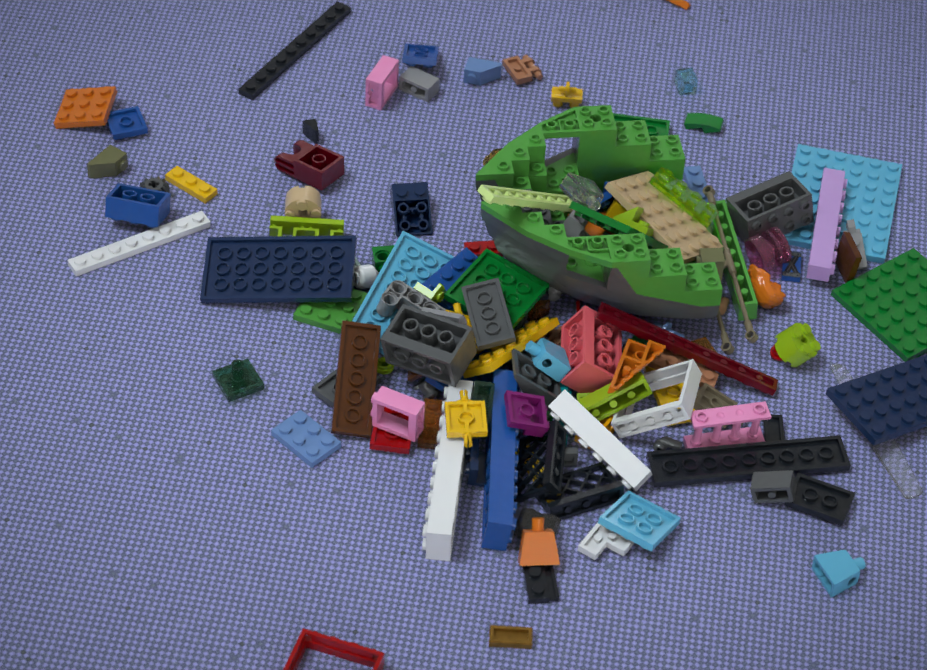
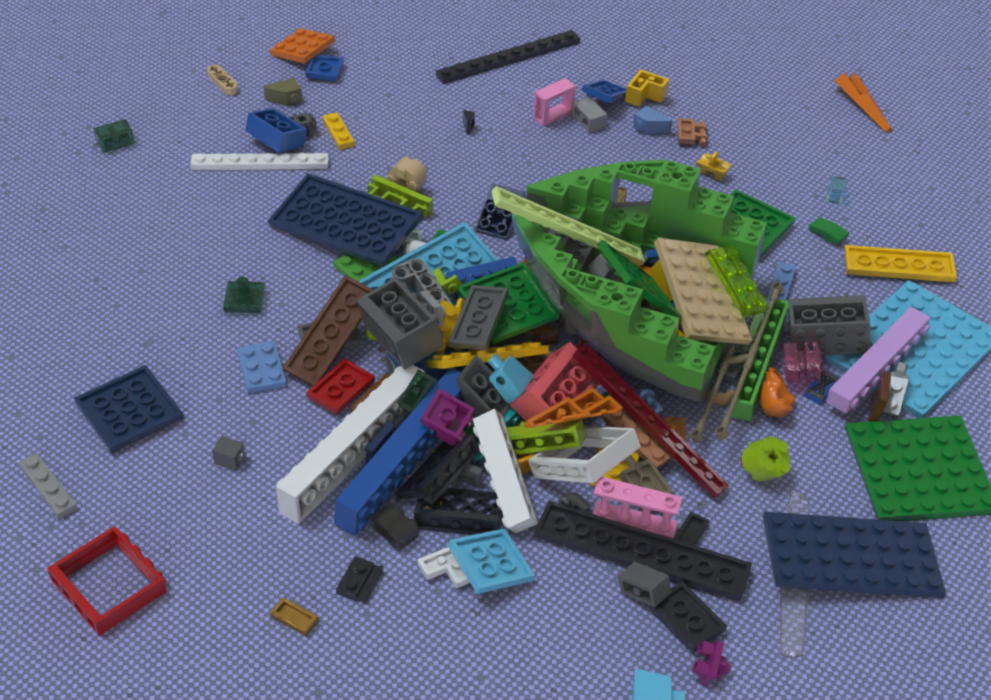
camera: 30 degrees right, 0 degrees up
(41, 176) = (228, 86): none -> tan beam
(201, 623) = (47, 486): none -> light grey plate
(217, 524) = (128, 408): none -> dark blue plate
(311, 164) = (445, 149): dark red brick -> none
(345, 525) = (229, 453): none -> dark grey brick
(403, 404) = (340, 374): bright pink window -> none
(453, 37) = (645, 86): none -> yellow brick
(465, 419) = (386, 400): yellow plate -> none
(538, 545) = (376, 543): orange torso -> none
(589, 192) = (633, 239): clear torso -> none
(632, 218) = (660, 281): lime slope -> none
(712, 255) = (724, 351): olive slope -> none
(781, 131) = (899, 263): none -> yellow plate
(864, 528) = (714, 663): none -> magenta hips

